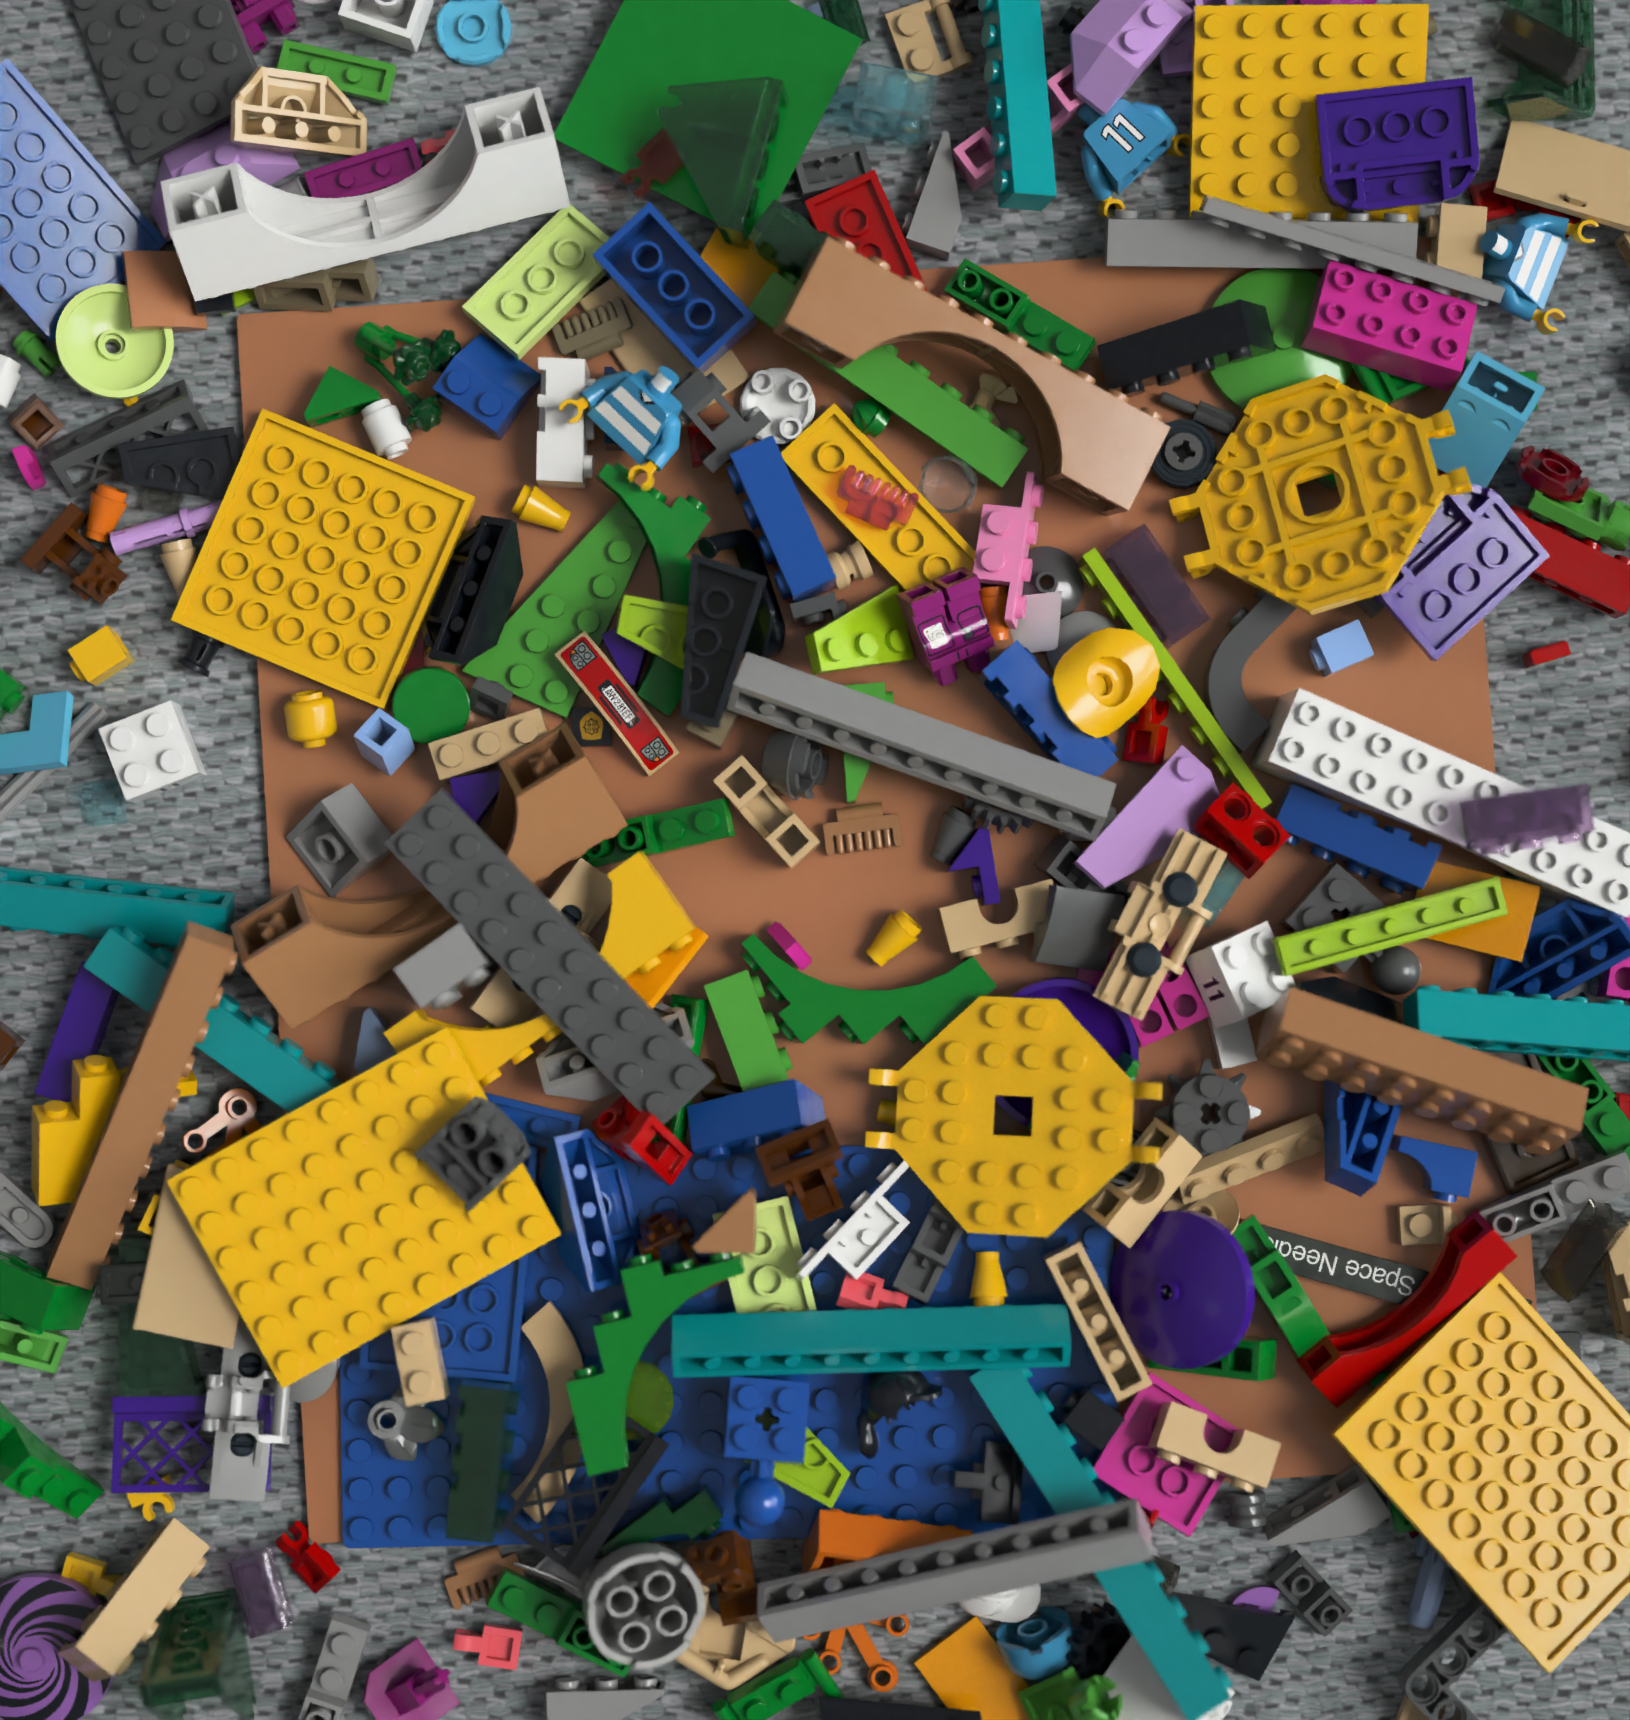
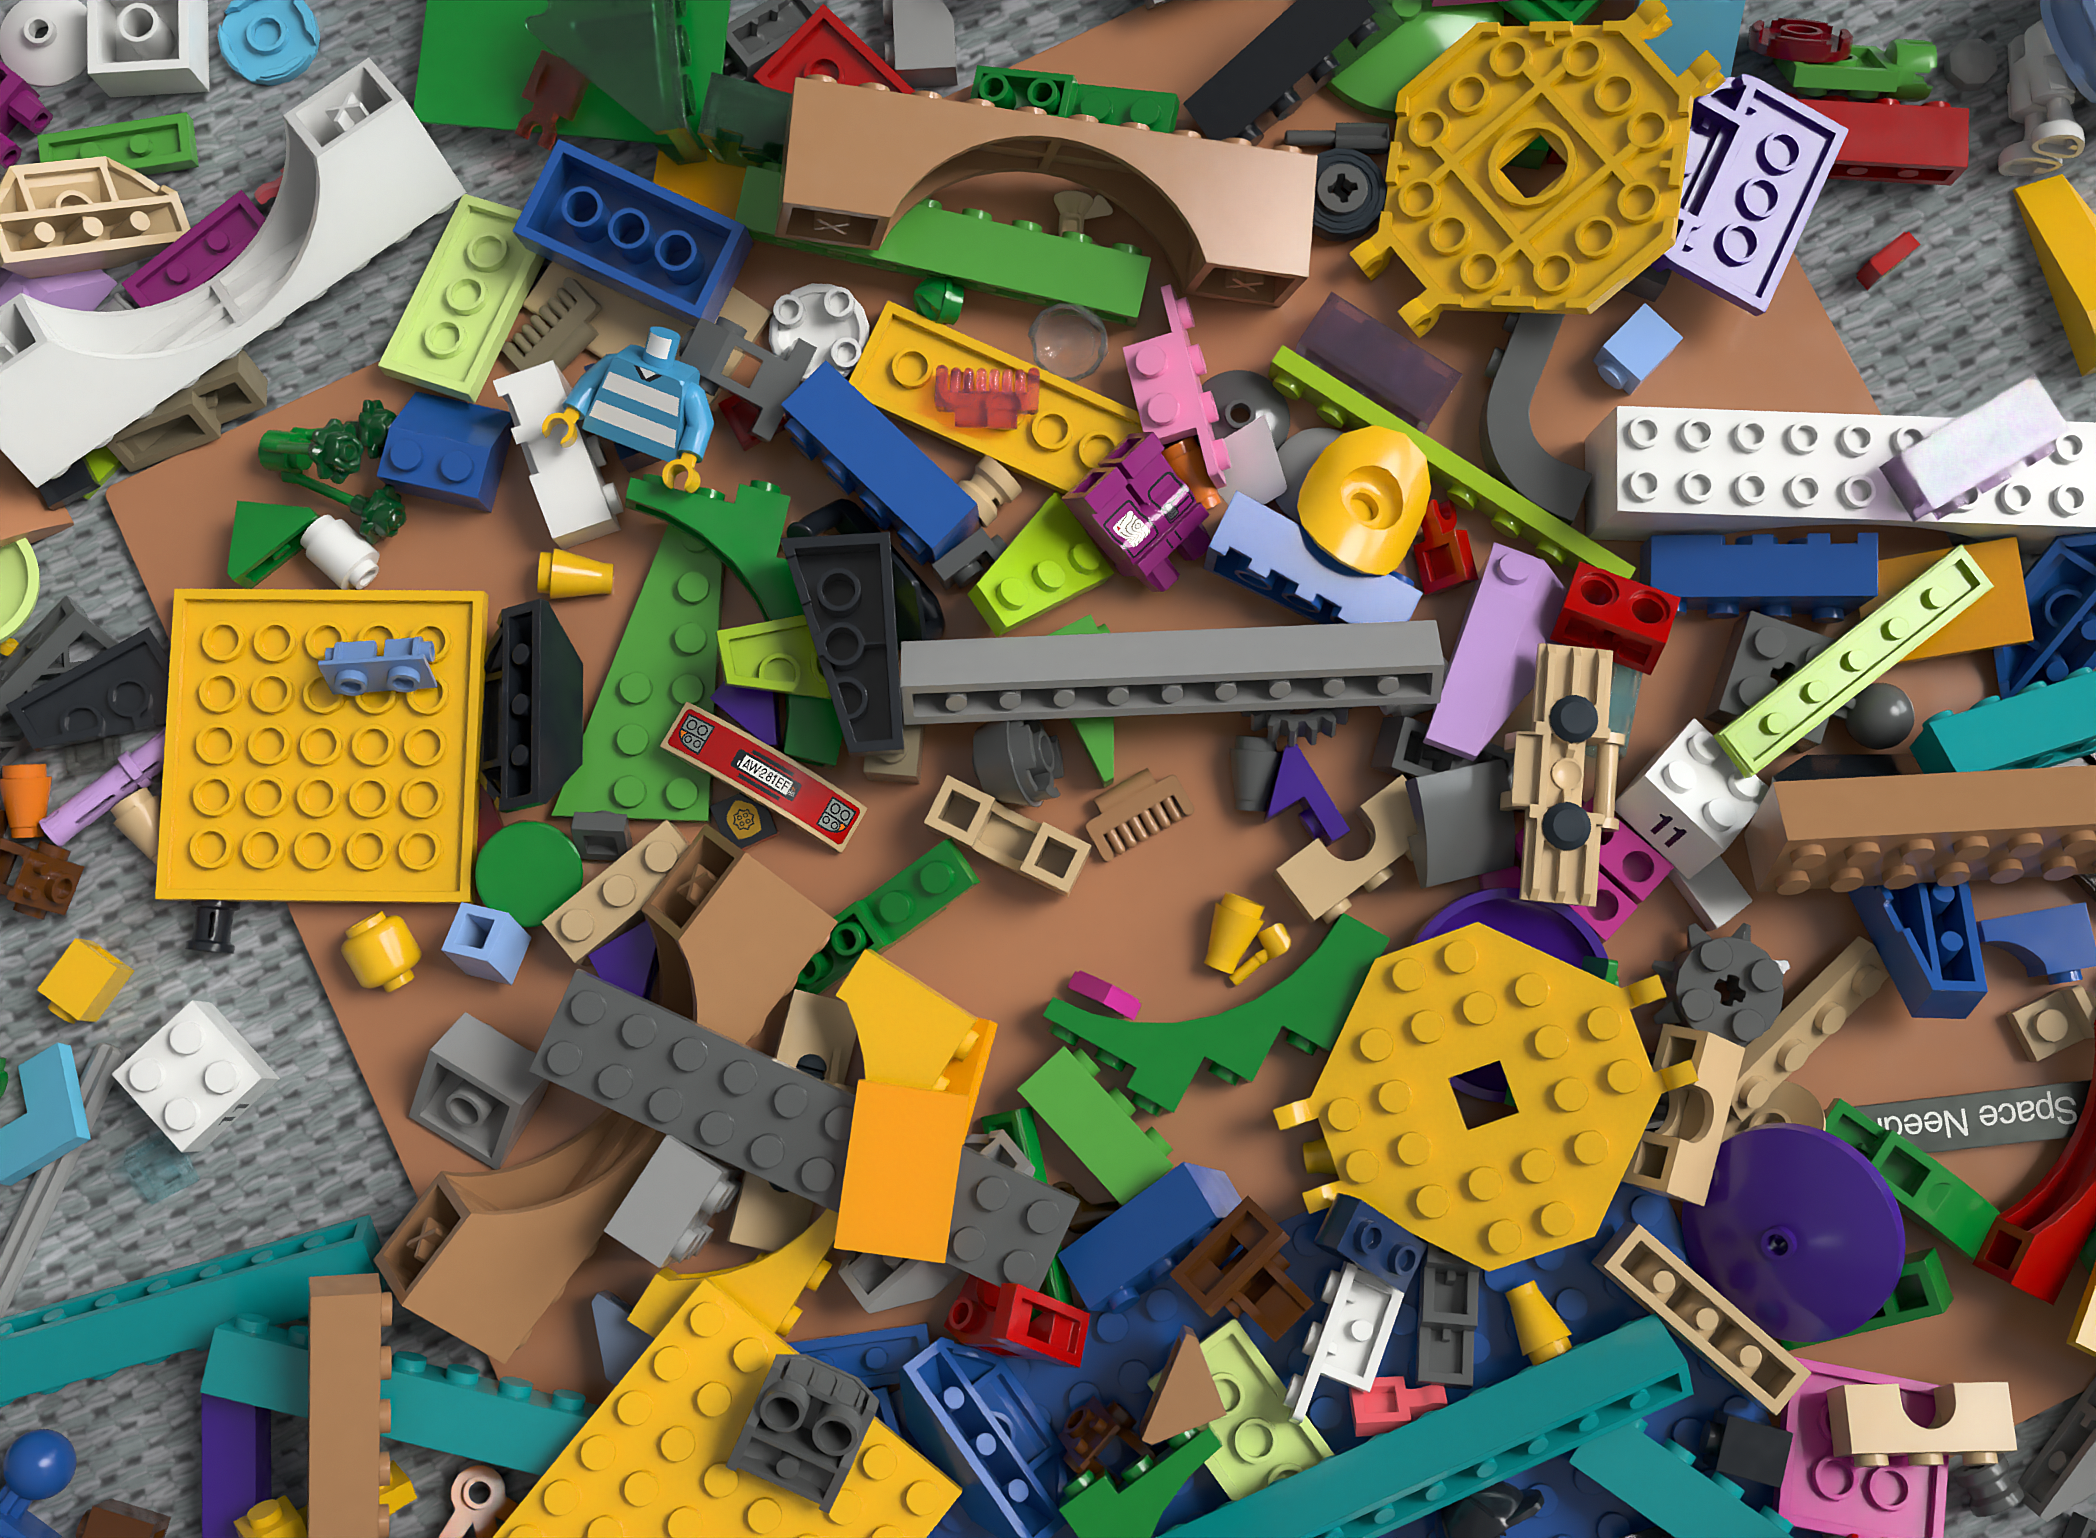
camera: 15 degrees left, 5 degrees down
(366, 517) = (357, 669): none -> medium blue hinge
(604, 1009) = (901, 1171): none -> light orange tile
(897, 1182) = (1370, 1242): none -> dark blue plate
(919, 957) = (1275, 943): none -> yellow hand

